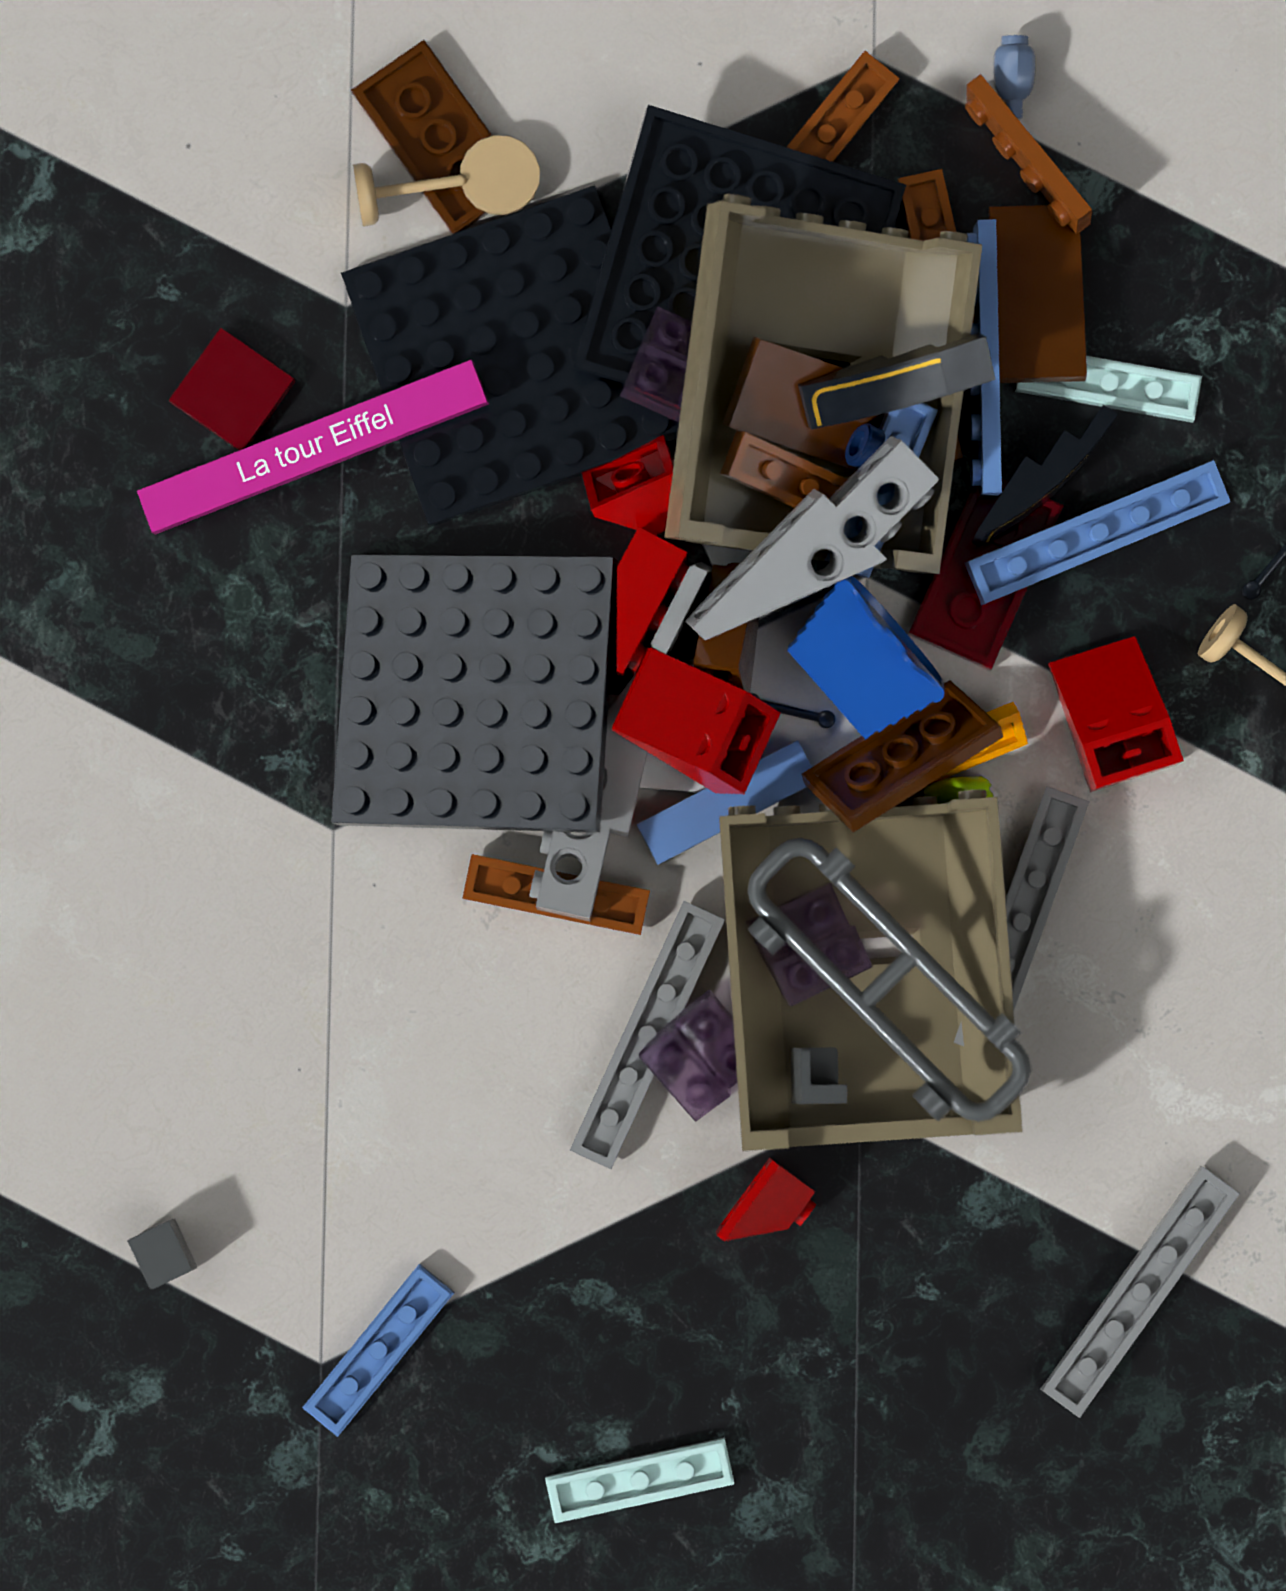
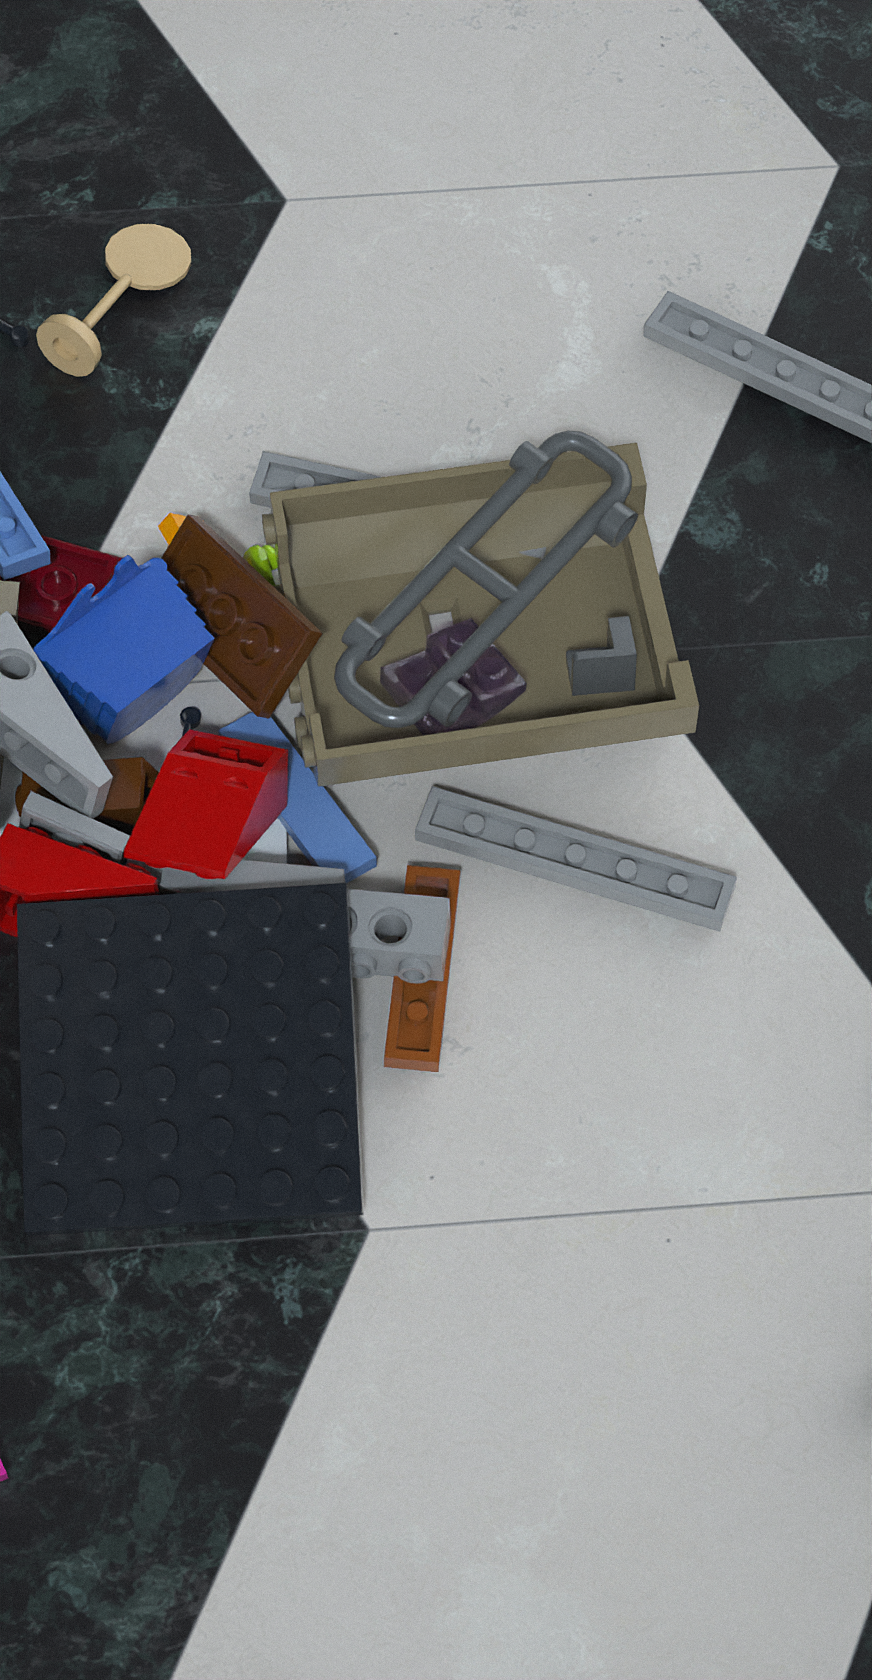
camera: 100 degrees left, 25 degrees down
(695, 1056) = (591, 797): clear purple slope -> none
(768, 1204) = (750, 719): red slope -> none
(1115, 714) = (167, 432): red slope -> none

